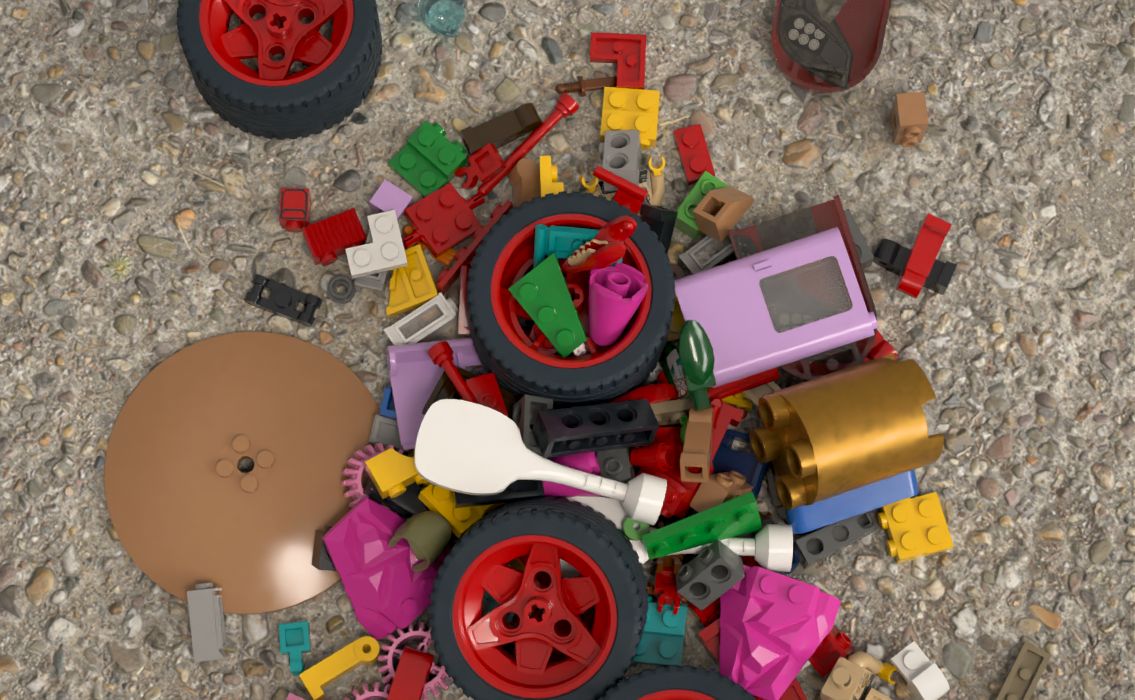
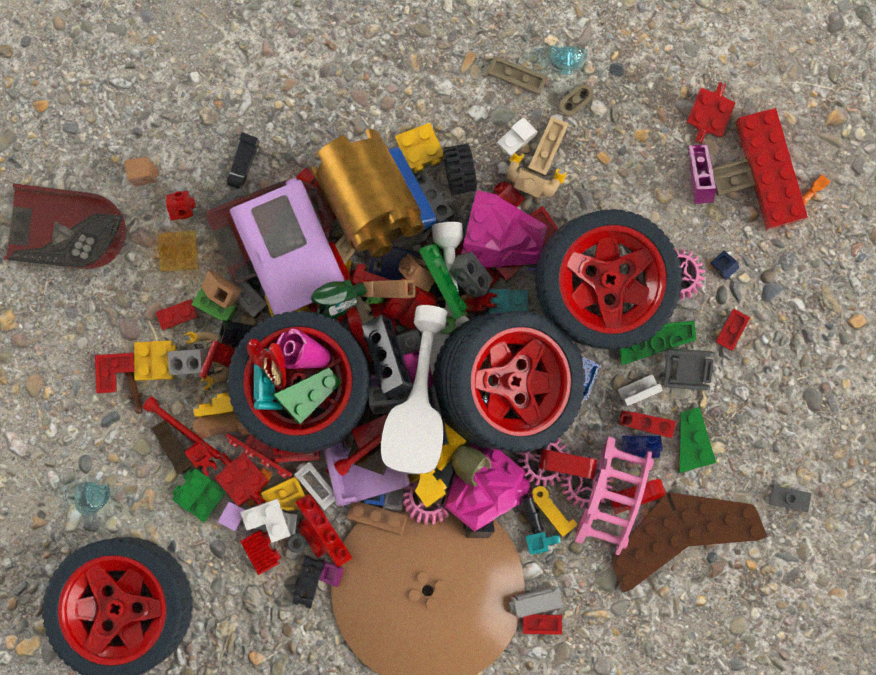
camera: 90 degrees left, 10 degrees up
(172, 633) = (543, 624): none -> red plate
(289, 333) = (331, 574): none -> magenta tile
(295, 209) = (243, 582): red brick -> none
(339, 634) = (532, 513): none -> black pin
(351, 323) = (320, 532): none -> red bracket
(362, 406) = (377, 518): none -> medium nougat plate
(655, 456) = (399, 316): red cone -> none
(787, 162) = (178, 251): none -> clear yellow plate
(854, 170) = (180, 205): none -> red brick
(875, 578) = (460, 169): none -> black tyre
(922, 255) = (237, 155): red leg -> none

